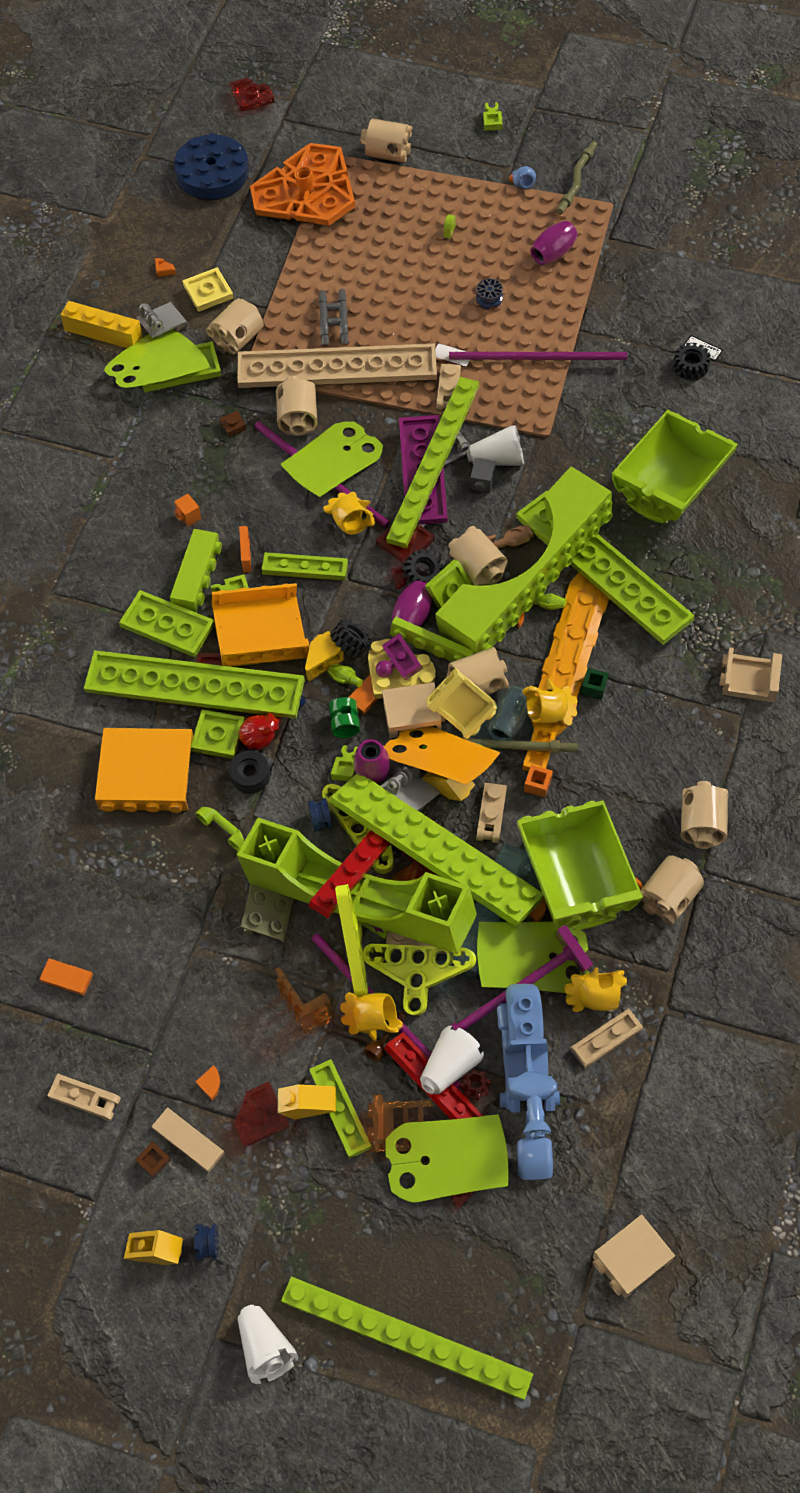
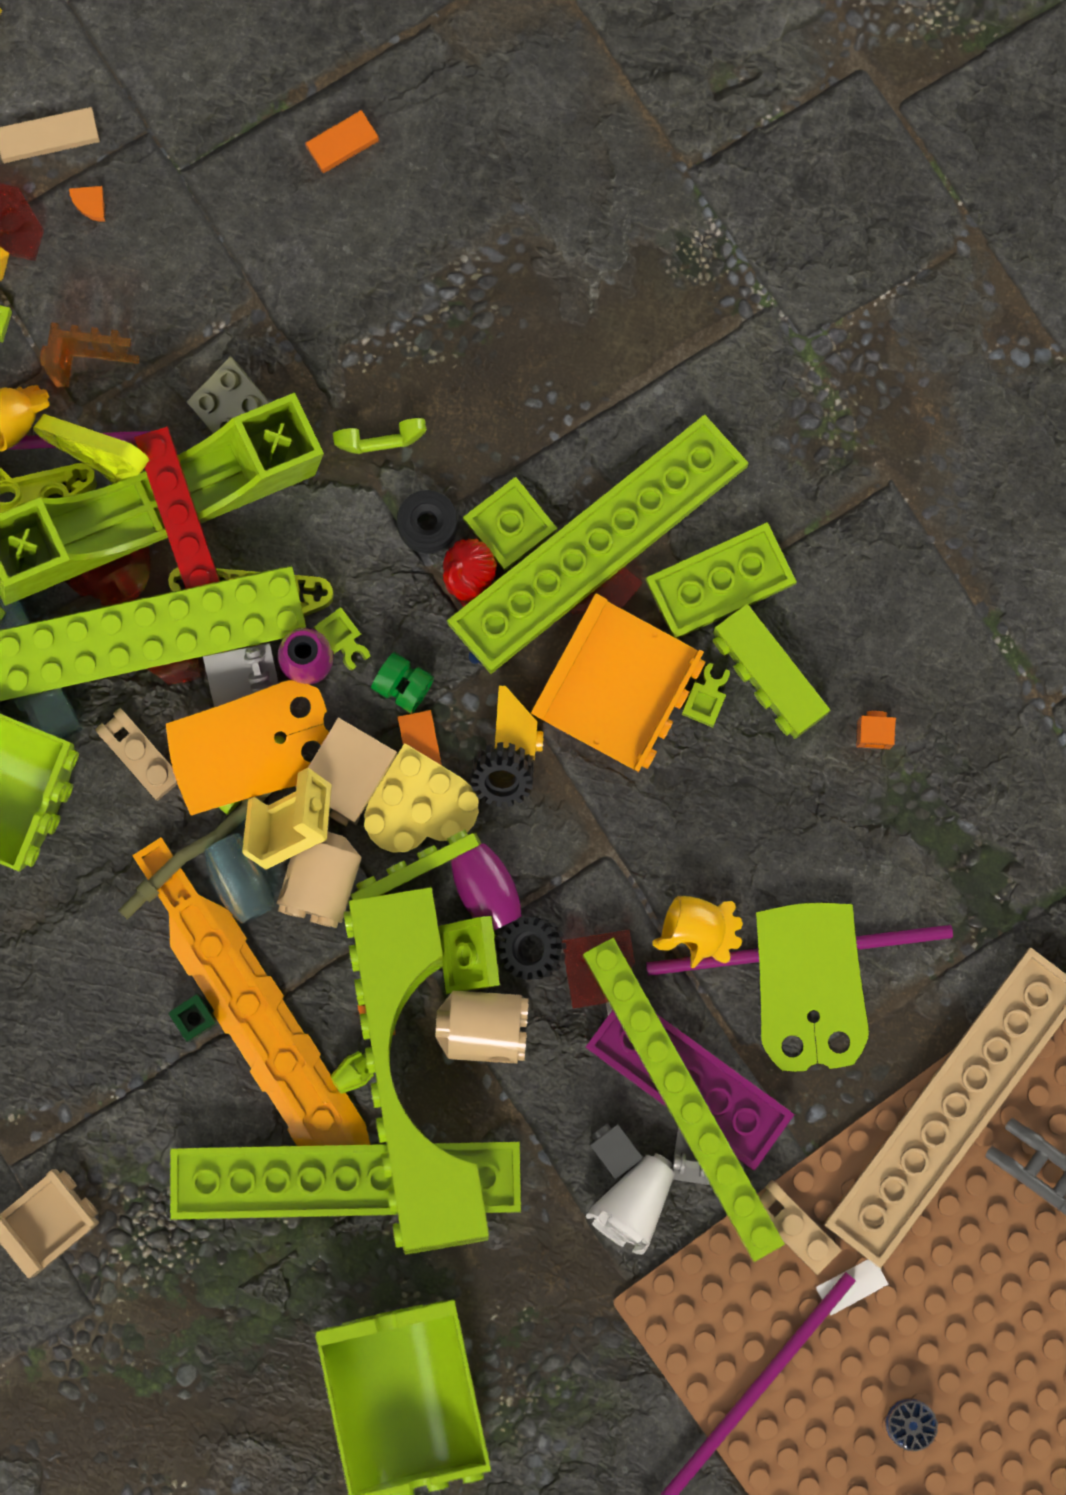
camera: 125 degrees right, 20 degrees up
(83, 1097) = (183, 63): tan plate -> none
(143, 769) = (531, 403): light orange panel -> none
(152, 1159) = (54, 83): reddish brown plate -> none
(233, 423) = (978, 900): reddish brown plate -> none
(245, 549) = (753, 757): orange tile -> none
(296, 406) = (922, 992): tan cylinder -> none
(305, 566) = (665, 811): lime plate -> none
(320, 814) = (298, 552): dark blue wheel -> none
(344, 675) = (466, 733): lime piece -> none
(398, 579) = (555, 916): clear red tile -> none
(401, 658) = (419, 807): magenta plate -> none
(513, 537) = (491, 1111): medium nougat piece -> none
(538, 781) = (115, 832): orange plate -> none
(551, 705) = (199, 930): yellow piece -> none

